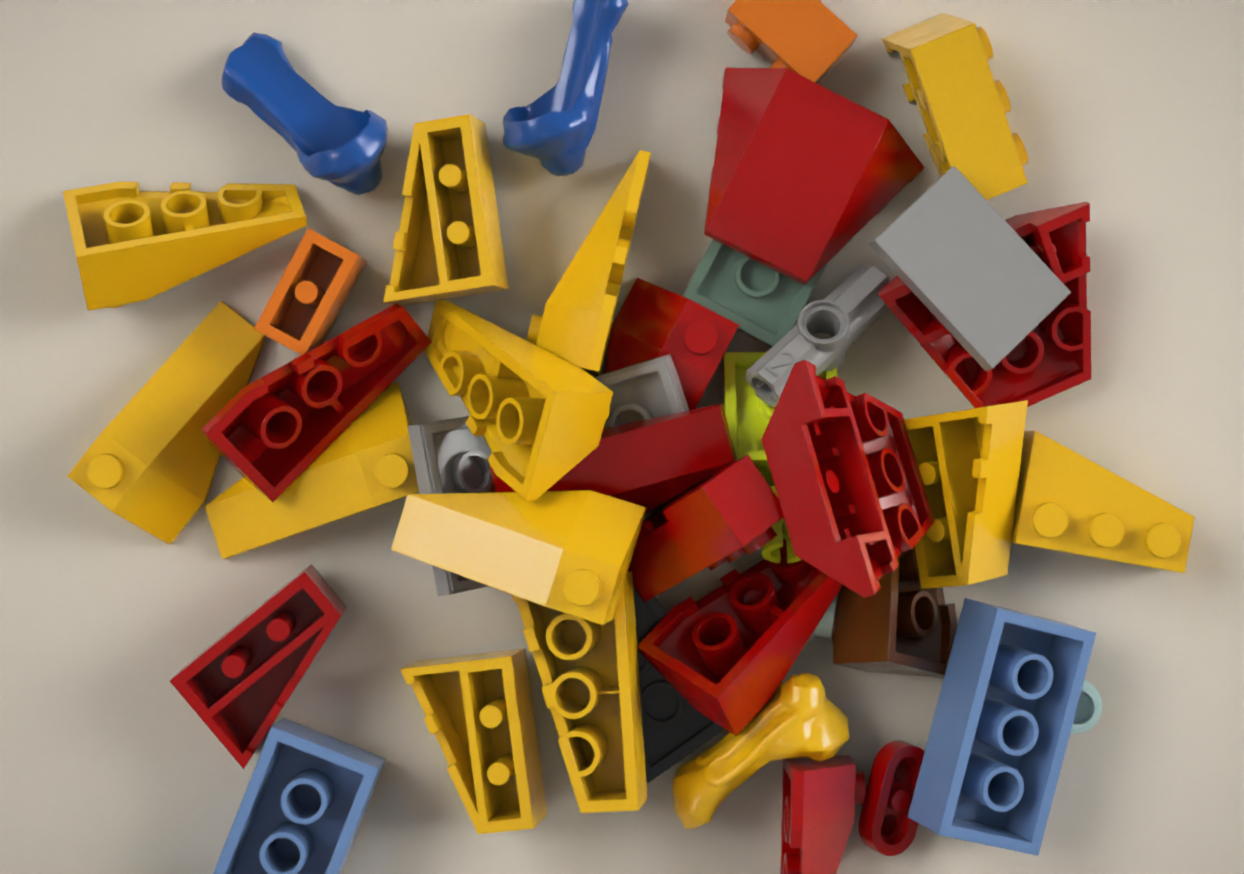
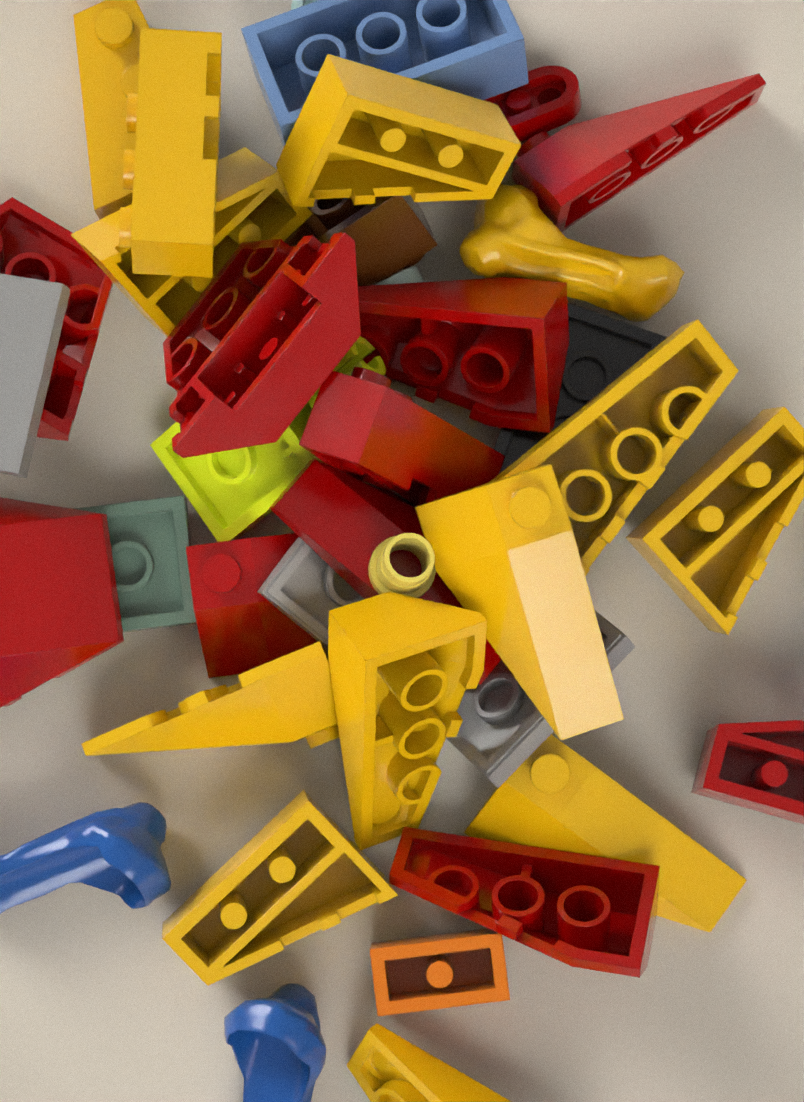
camera: 120 degrees left, 5 degrees down
(153, 456) = (691, 1012): yellow wedge -> none
(610, 449) = (386, 579): none -> light yellow piece
(842, 314) = (111, 461): light grey piece -> none
(931, 684) = (393, 136): none -> yellow wedge
(1027, 514) = (174, 154): none -> yellow wedge

